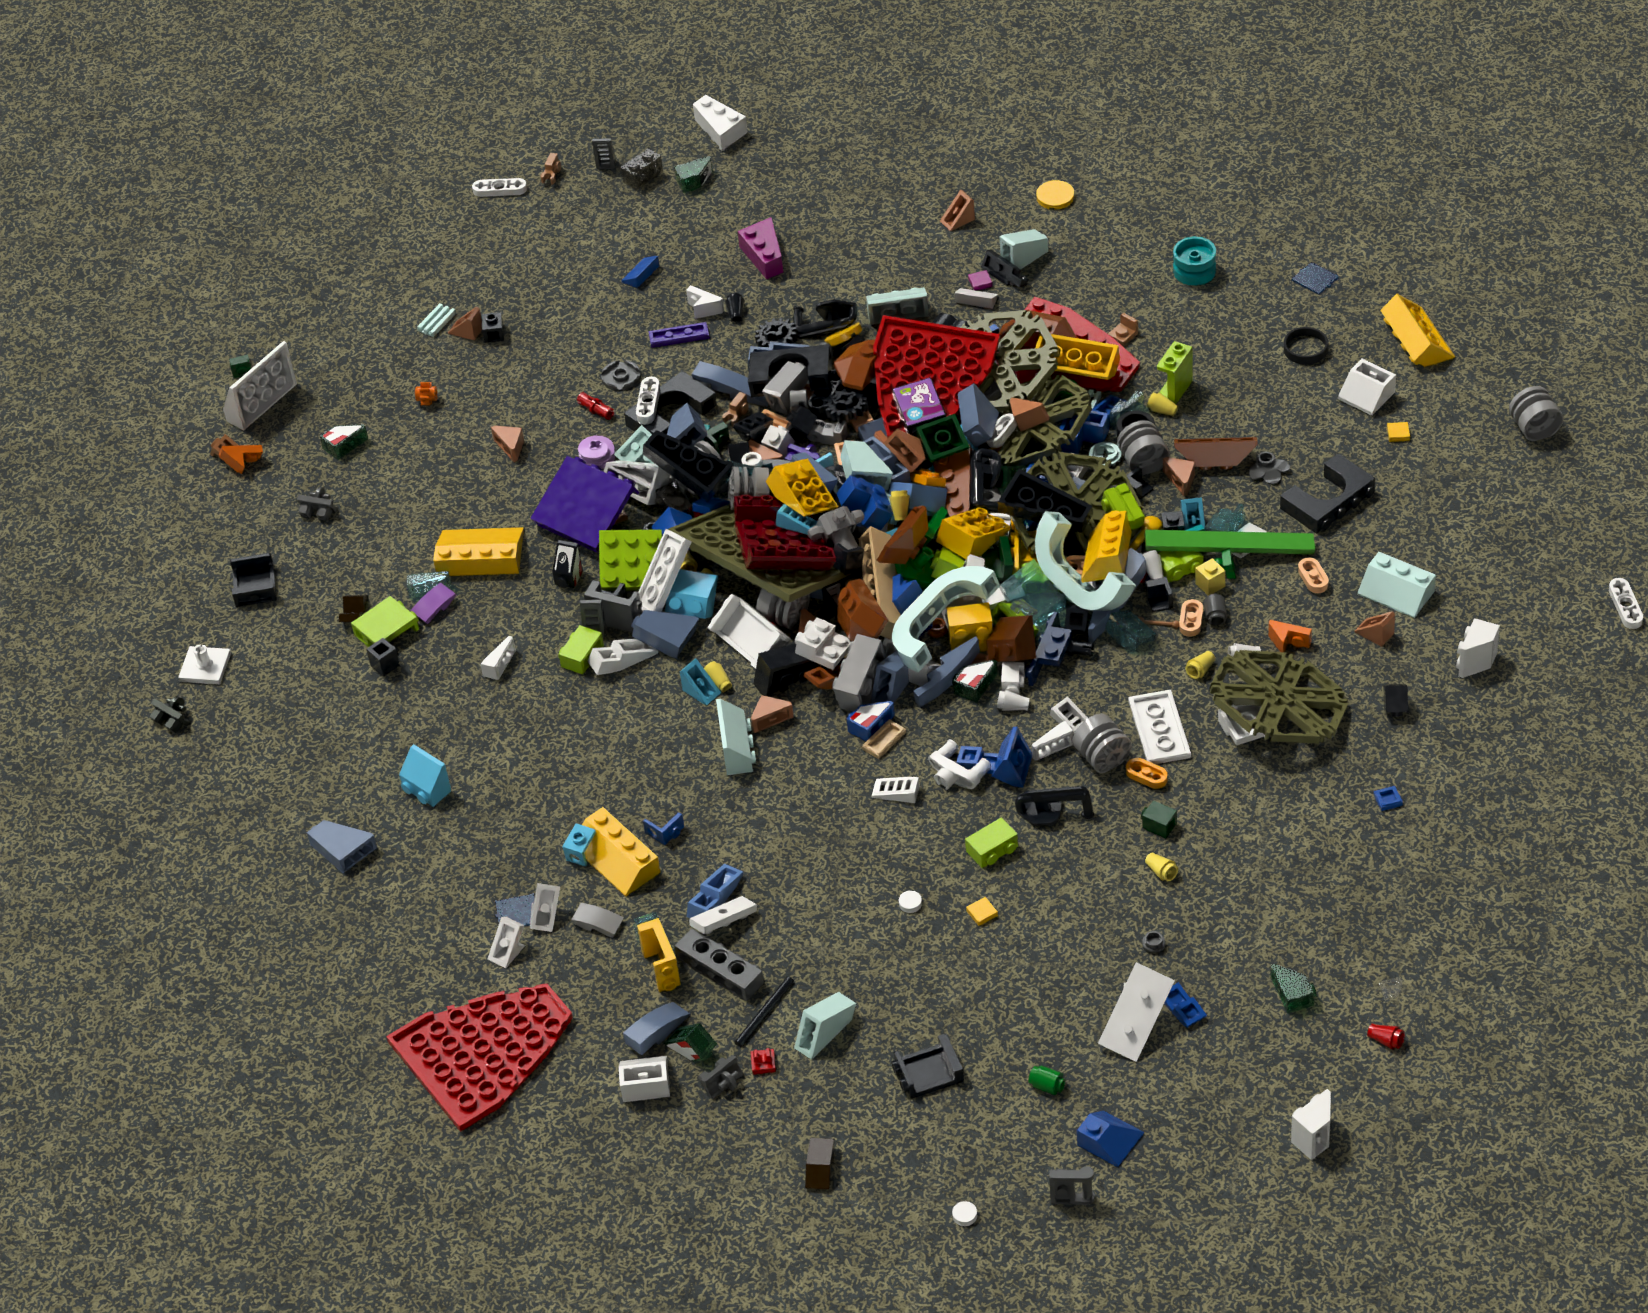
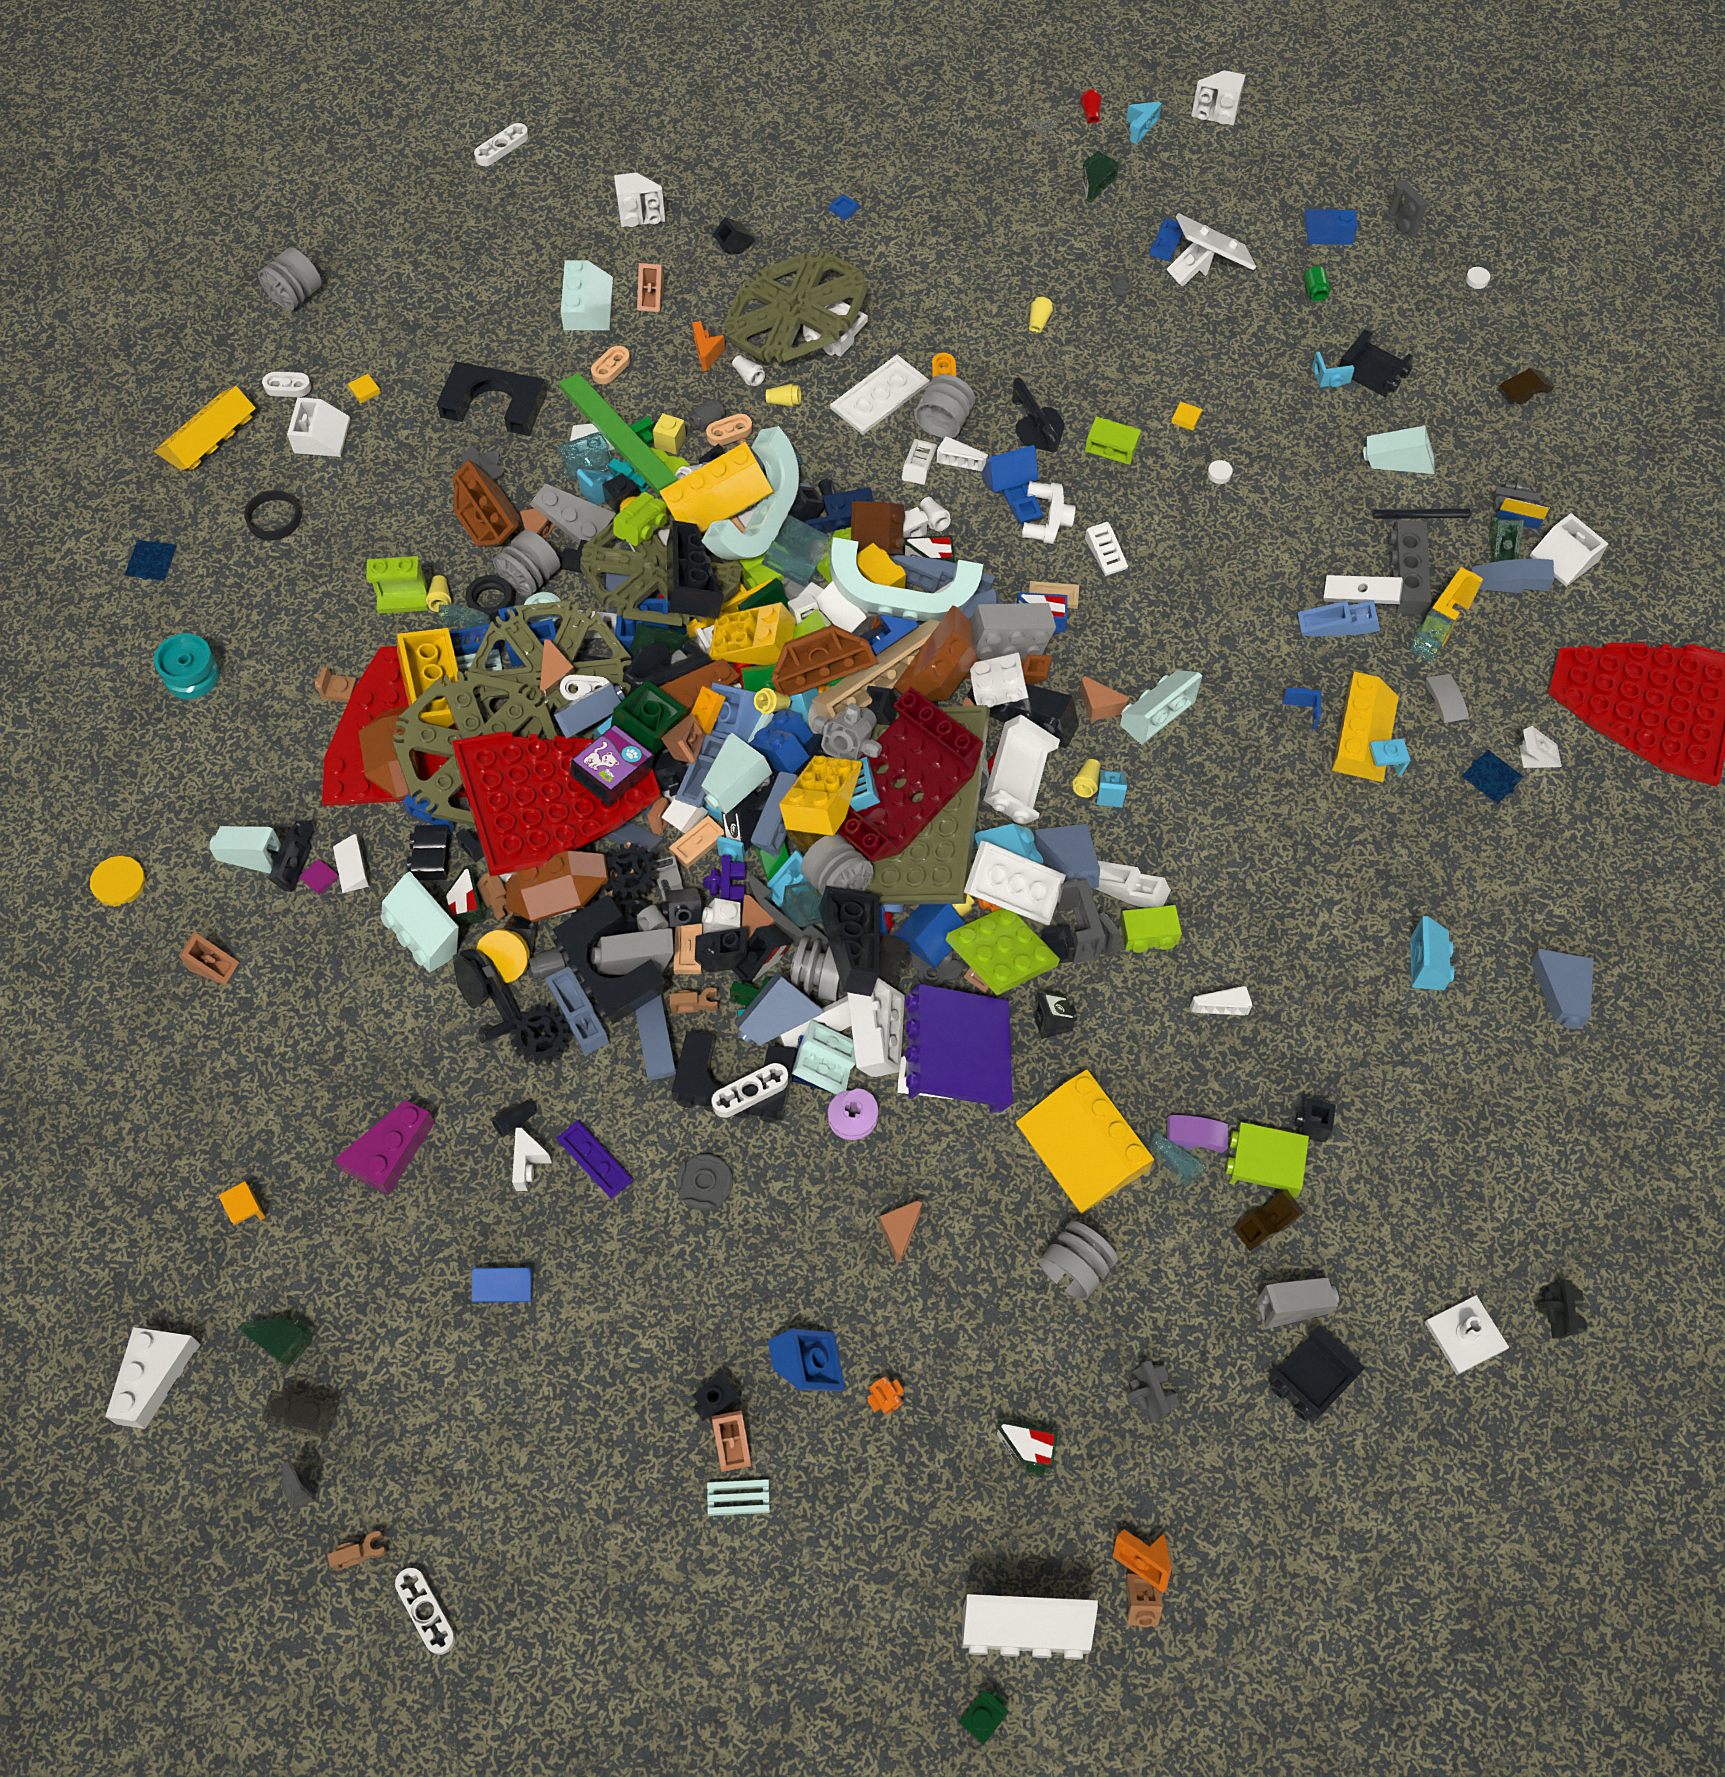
camera: 130 degrees left, 15 degrees up
(296, 586) = (1296, 1301): none -> light grey slope
(412, 500) = (1081, 1256): none -> light grey wheel
(474, 370) = (807, 1359): none -> blue slope
(544, 907) = (1478, 744): white slope -> none
(595, 405) = (775, 1188): red pin -> none
(699, 1059) = (1531, 514): none -> yellow sticker
(752, 459) = (778, 914): white tile -> none
(763, 1061) = (1469, 483): red tile -> none
(783, 182) = (241, 1203): none -> light orange panel
(943, 1020) = (1331, 377): none -> medium azure bracket
(1159, 819) = (991, 337): dark green brick -> none
(1170, 490) = (570, 513): none -> light grey wing
(1339, 1064) = (1142, 119): none -> medium azure slope
(1429, 392) = (288, 384): none -> white plate

